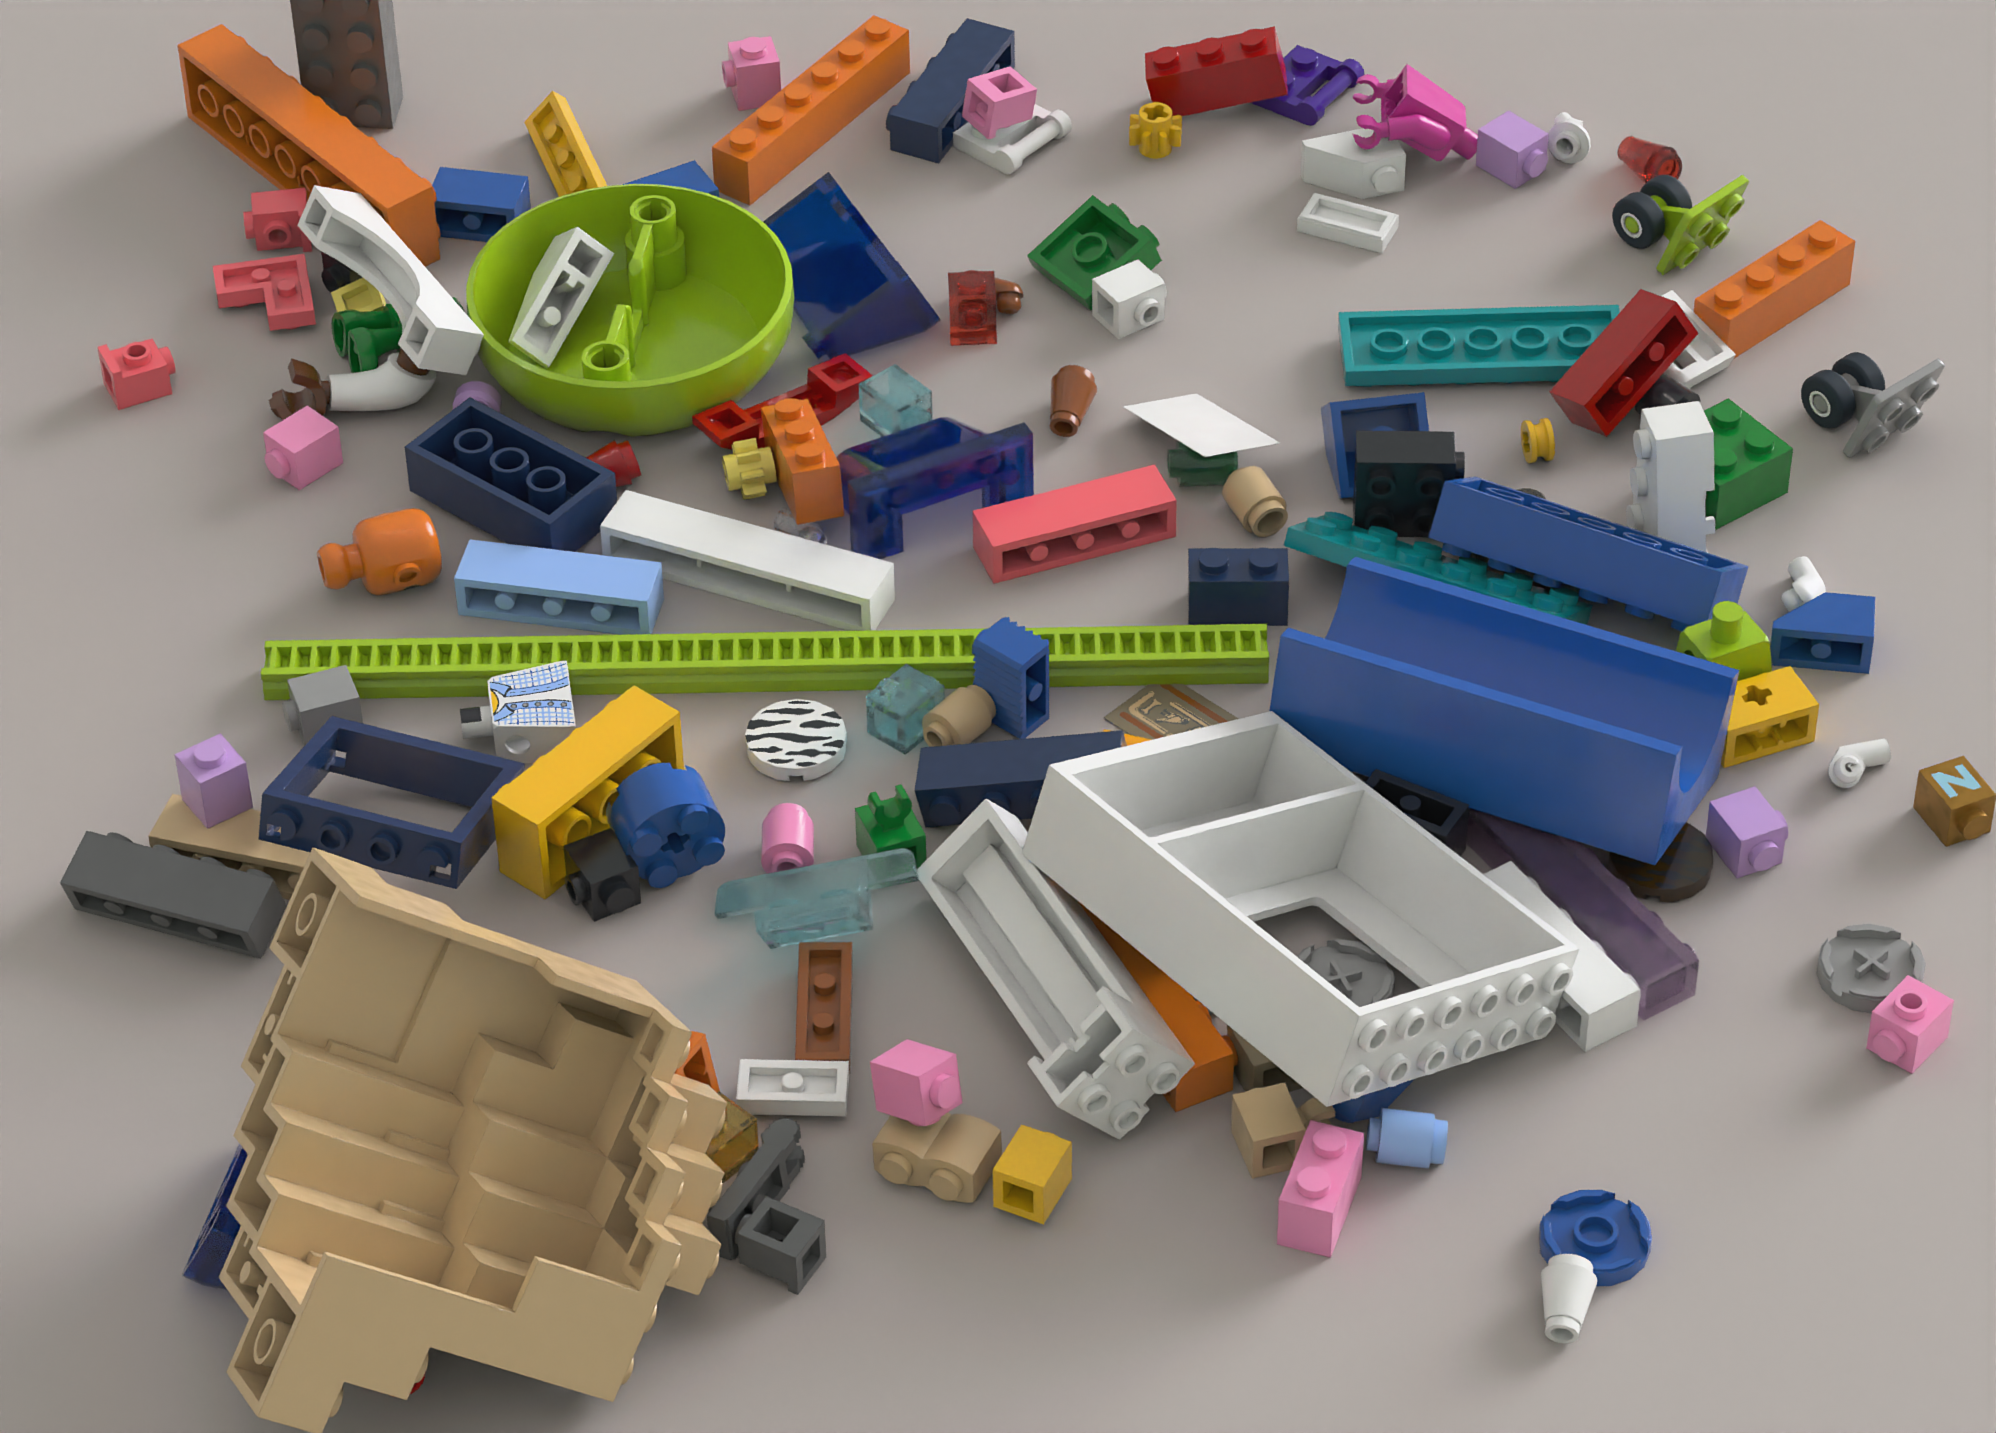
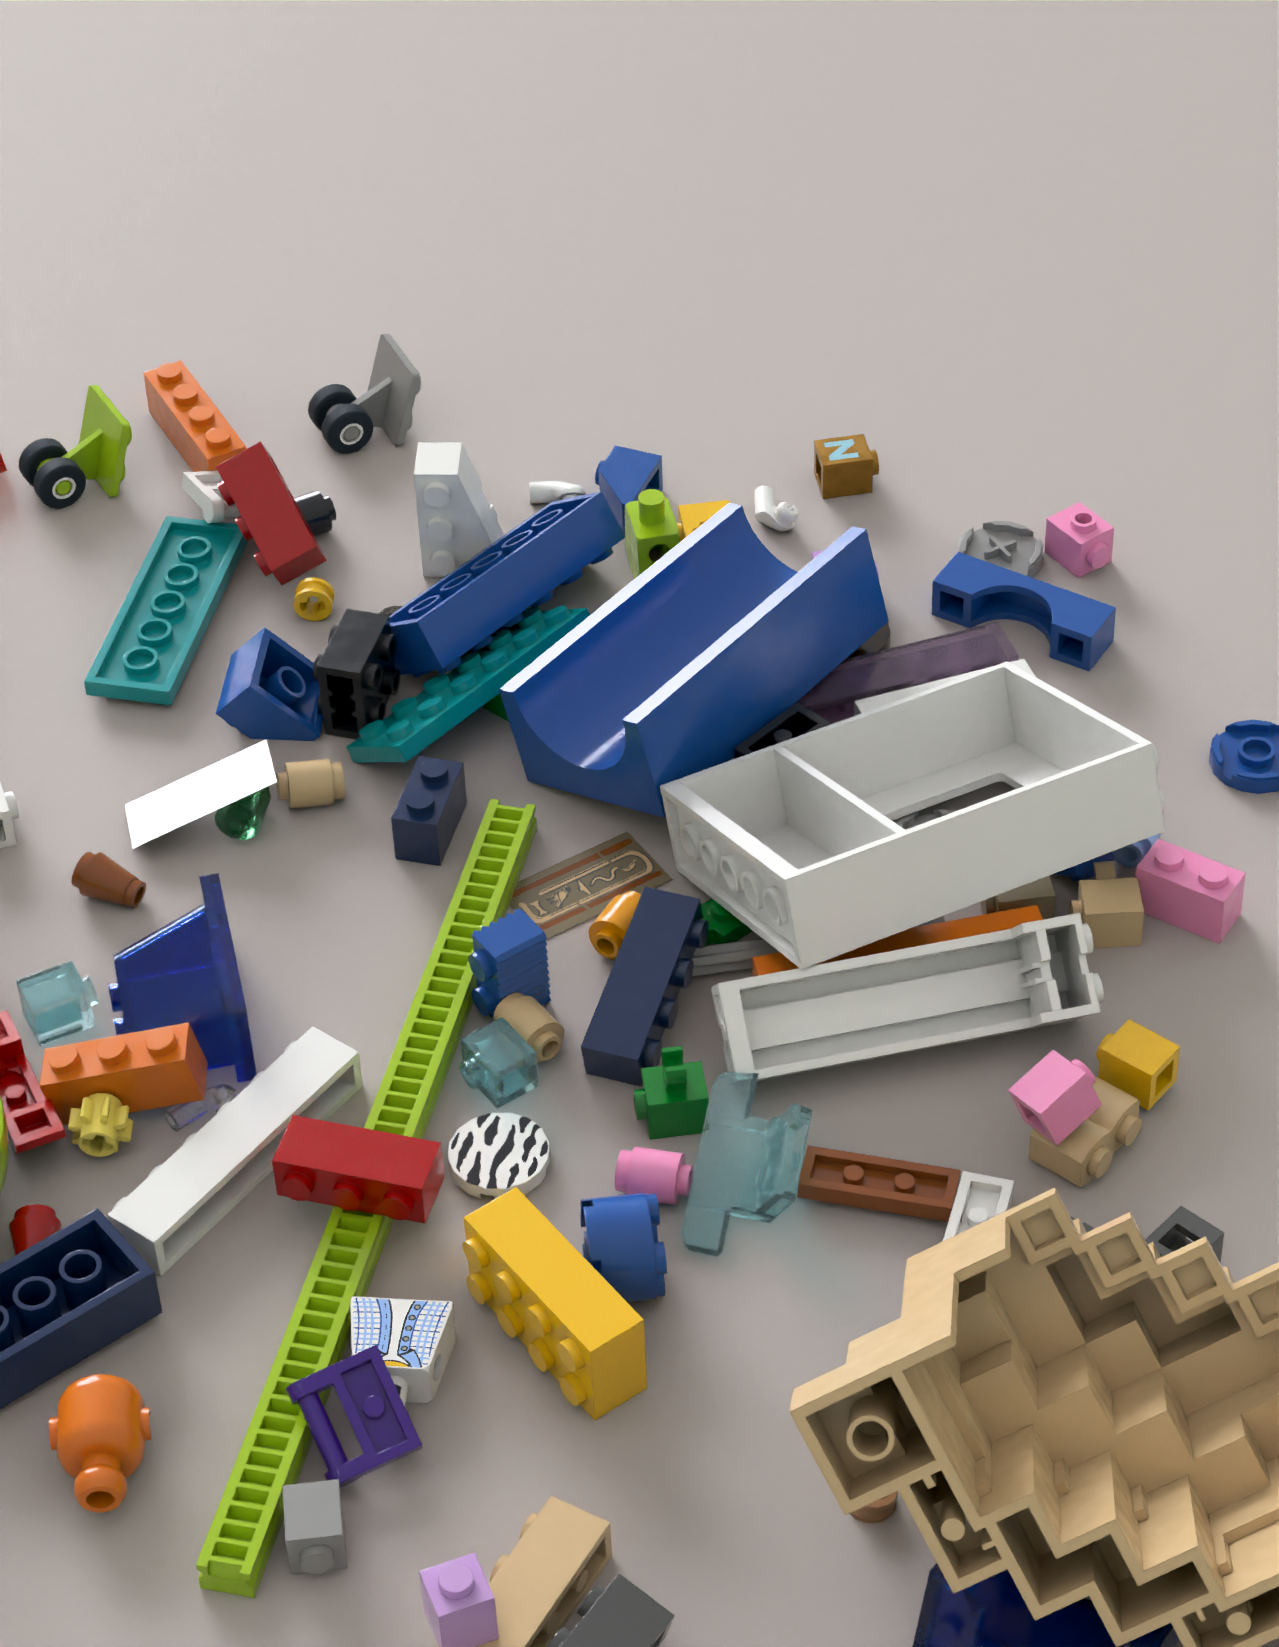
camera: 75 degrees left, 0 degrees up
(376, 839) = (411, 1497): dark blue window -> none
(438, 694) = (371, 1409): none -> dark purple plate
(559, 588) = (209, 1304): light blue brick -> none
(601, 875) = (665, 1317): black brick -> none
(708, 627) = (358, 1169): none -> red brick
(1074, 523) = (287, 905): coral brick -> none
(1744, 1034) = (979, 591): none -> blue arch
(1749, 464) = (385, 500): green brick -> none

